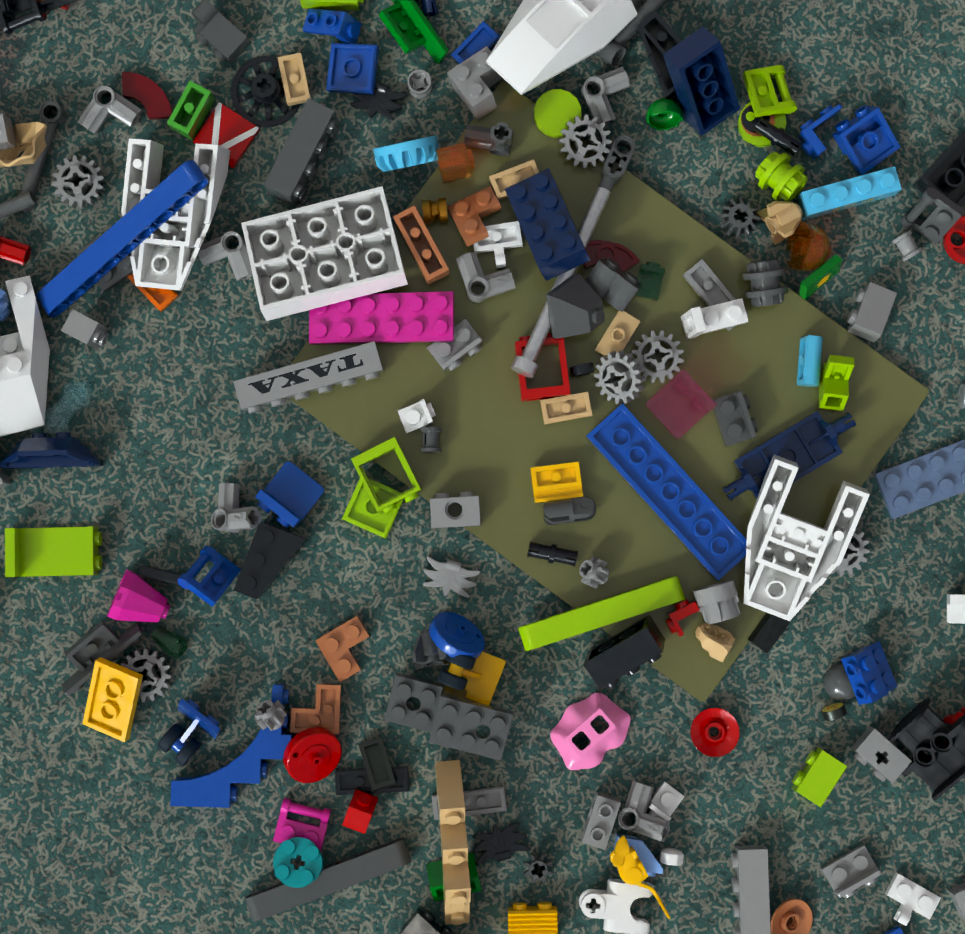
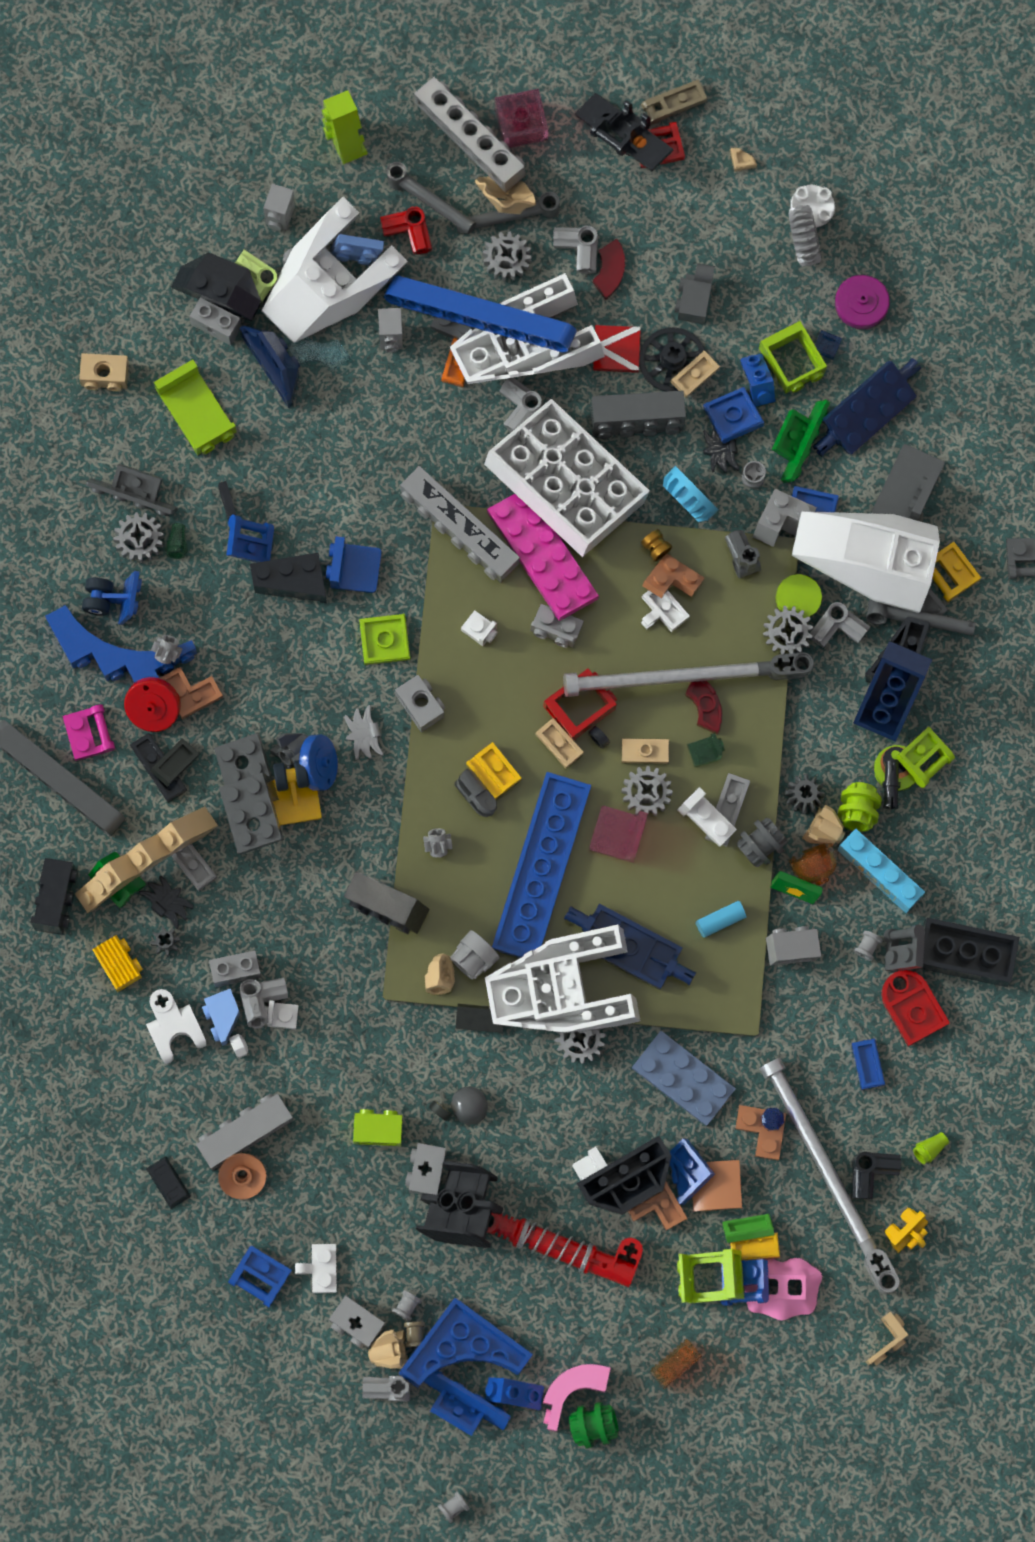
camera: 55 degrees right, 10 degrees down
(112, 699) = (104, 521): yellow plate -> none
(137, 600) = (196, 495): dark pink cone -> none
(191, 110) = (618, 309): bright green brick -> none
(229, 515) = (309, 527): light grey piece -> none
(305, 874) = (51, 753): teal plate -> none
(336, 647) = (254, 675): nougat plate -> none
(360, 811) = (128, 769): red brick -> none
(374, 453) = (429, 612): lime window -> none
(421, 245) = (620, 549): nougat brick -> none
(431, 440) = (467, 650): dark grey bush -> none
(455, 162) = (704, 536): clear orange brick -> none
(473, 275) = (622, 606): light grey piece -> none
(512, 176) = (722, 594): tan plate -> none
(547, 224) = (698, 637): dark blue brick -> none
(552, 553) = (432, 802): black pin -> none
(574, 308) = (643, 697): dark grey slope -> none
(578, 718) = (298, 932): bright pink piece -> none
(601, 613) = (407, 869): lime beam -> none
(613, 284) = (684, 719): dark grey brick -> none
(616, 365) = (611, 769): light grey gear -> none
(631, 868) = (210, 1010): yellow animal -> none
(664, 114) = (851, 682): green hair -> none
(682, 610) = (448, 933): red bracket -> none
(727, 732) = (361, 1009): red dish -> none
(734, 418) = (634, 884): dark grey bracket -> none
(810, 142) = (902, 816): blue bracket -> none
(835, 382) = (714, 948): lime brick -> none
(851, 872) = (315, 1203): light grey bracket -> none
(865, 138) = (935, 859): blue plate -> none
(869, 673) = (489, 1118): blue plate -> none

